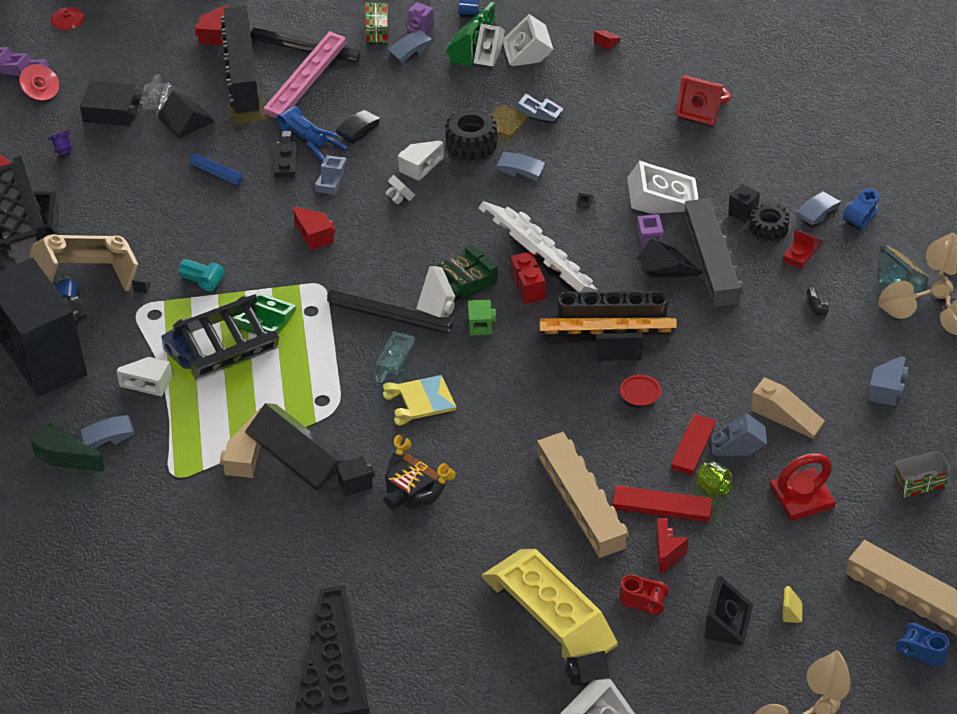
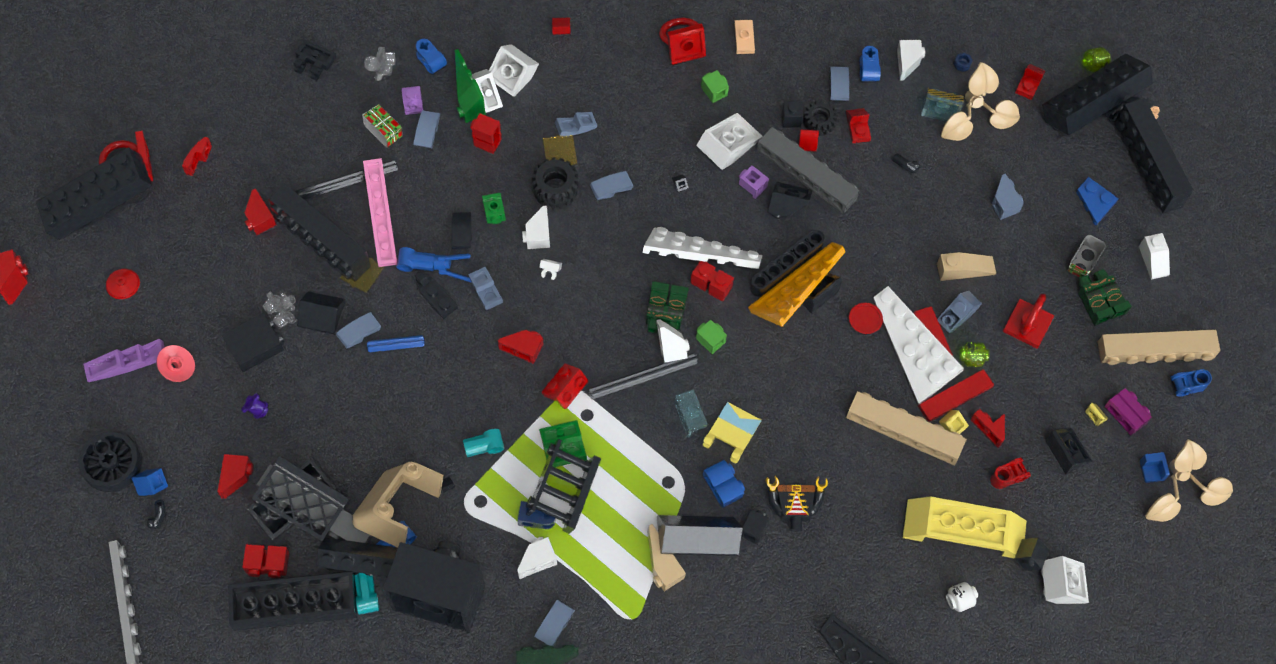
camera: 45 degrees left, 20 degrees up
(192, 141) = (358, 329): none -> sand blue slope
(316, 277) = (565, 385): none -> red bracket
(365, 427) = (723, 483): none -> blue brick
(401, 124) = (493, 208): none -> green brick
(451, 68) = (486, 133): none -> red piece
(481, 656) = (961, 597): none -> white head
(636, 523) = (954, 422): none -> light yellow slope
(663, 446) = (919, 352): none -> white wing
(694, 147) = (715, 86): none -> bright green brick
(739, 231) = (808, 140): none -> red slope
(765, 130) = (744, 37): none -> light nougat plate
(799, 692) = (1154, 467): none -> blue panel
(826, 624) = (1128, 411): none -> magenta brick
(904, 509) = (1102, 297): none -> dark green hips
(909, 225) = (909, 56): none -> white slope

